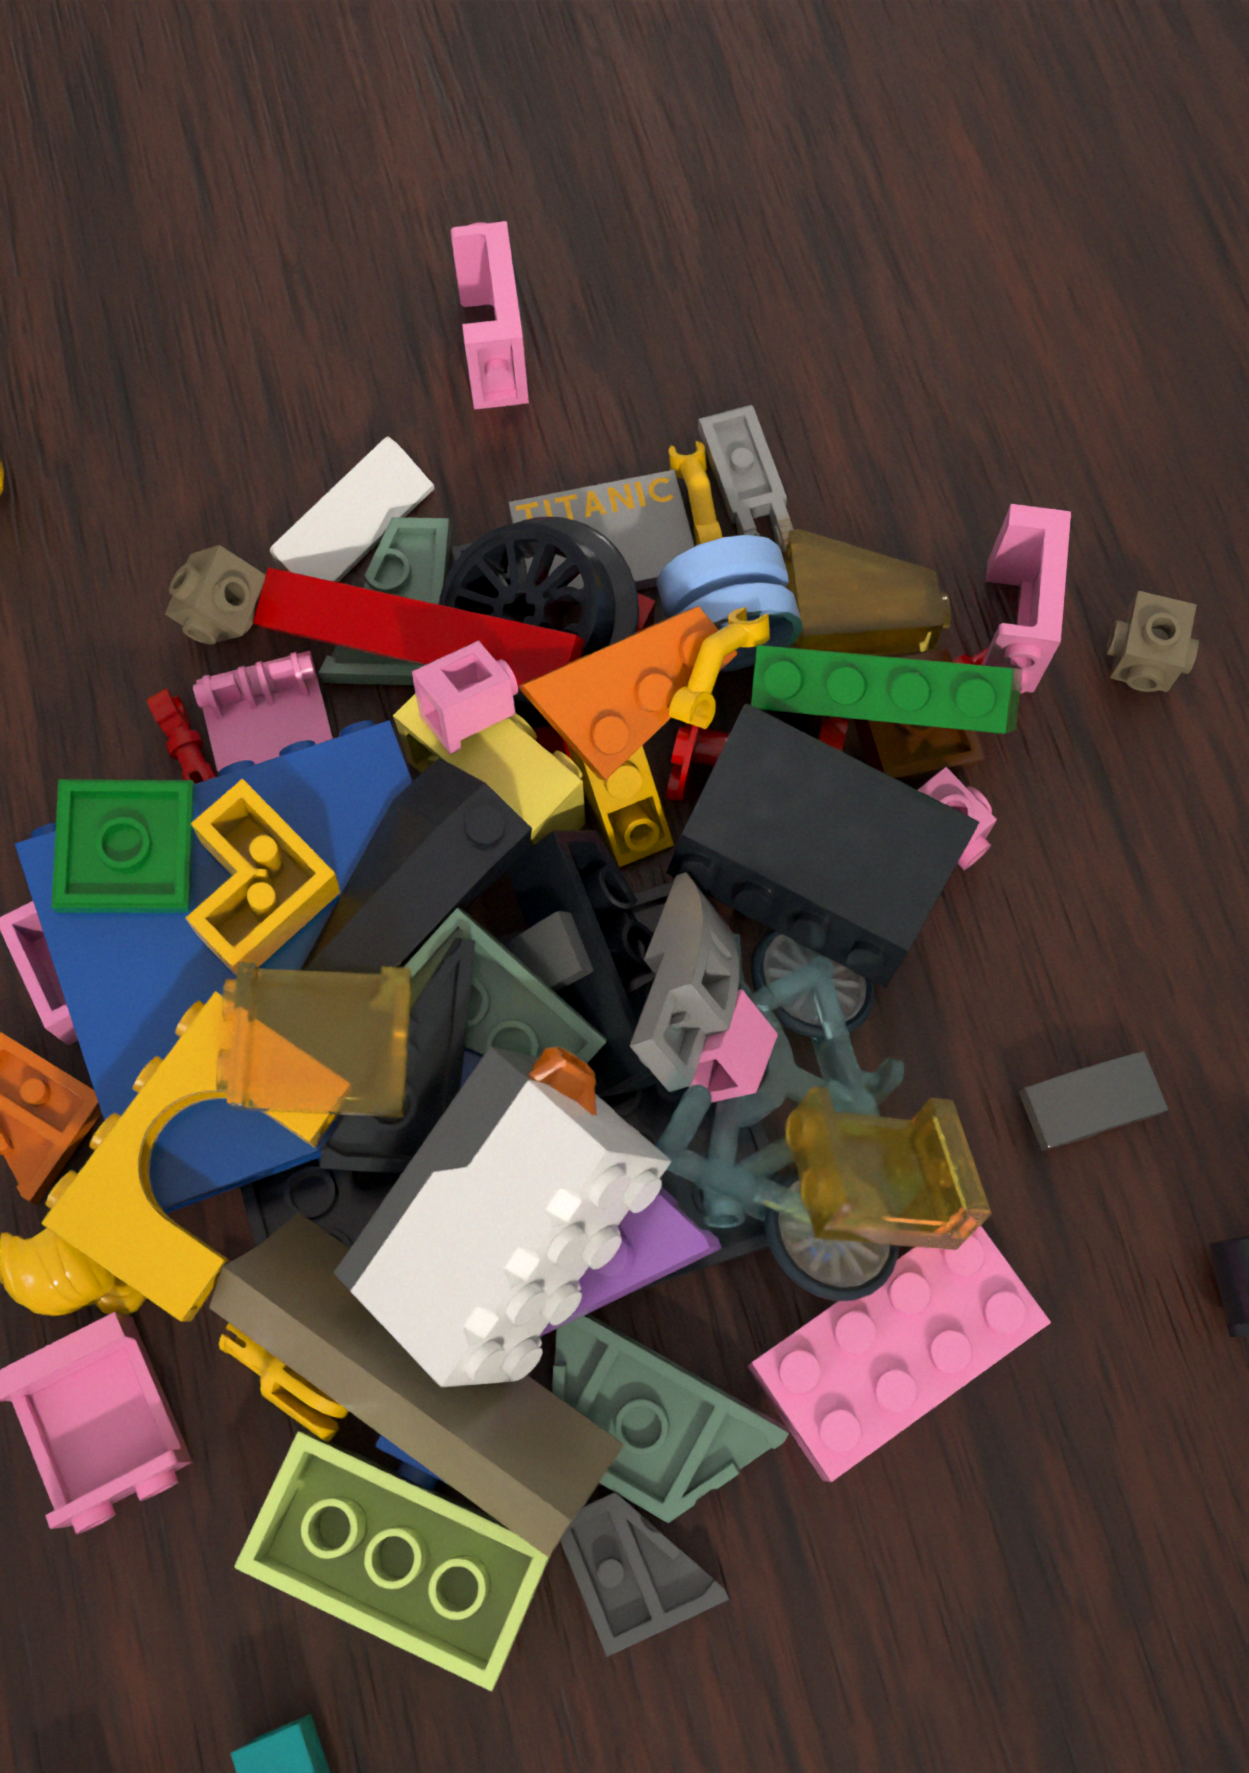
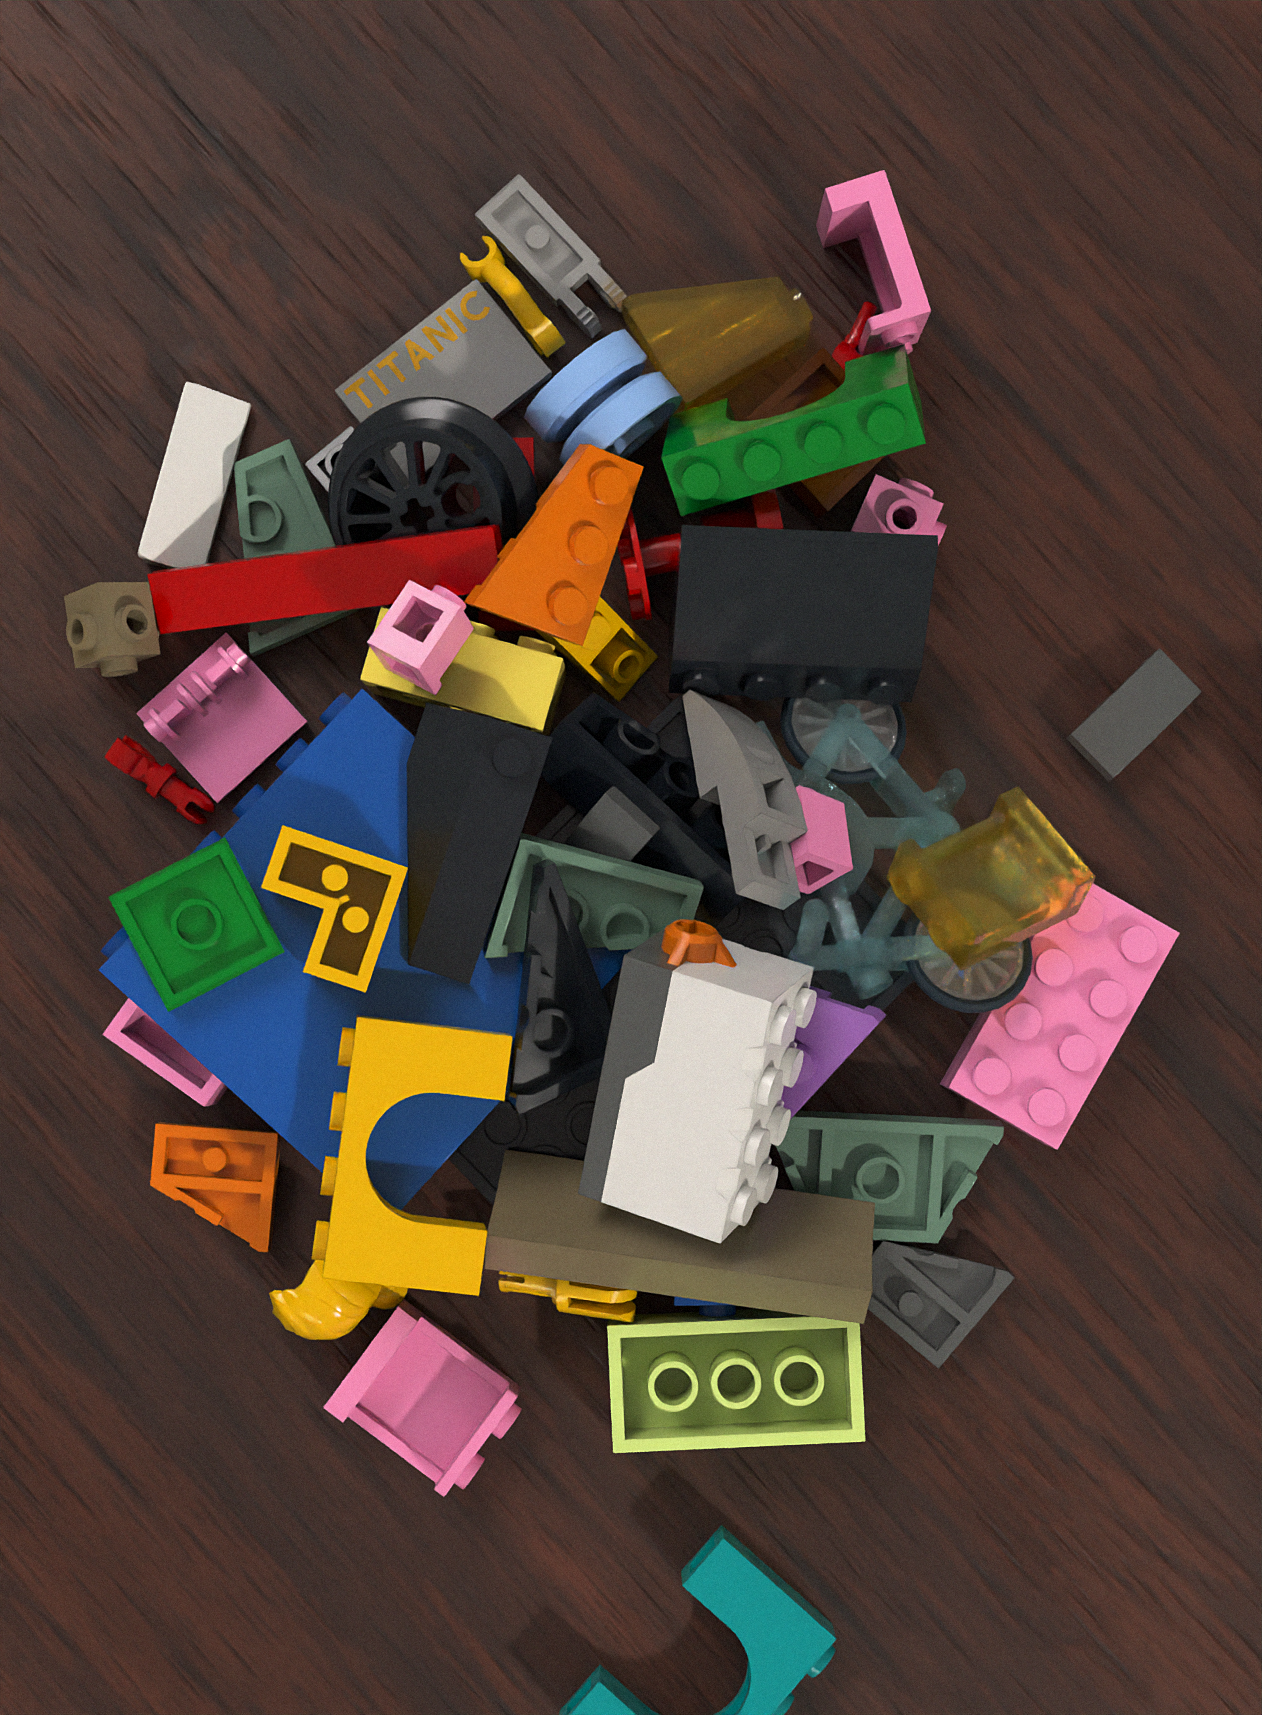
camera: 25 degrees left, 15 degrees up
(316, 1041) = (471, 1016): clear yellow panel -> none
(495, 346) = (252, 253): bright pink panel -> none
(695, 702) = (630, 537): yellow arm -> none
(1153, 642) = (1009, 249): dark tan brick -> none

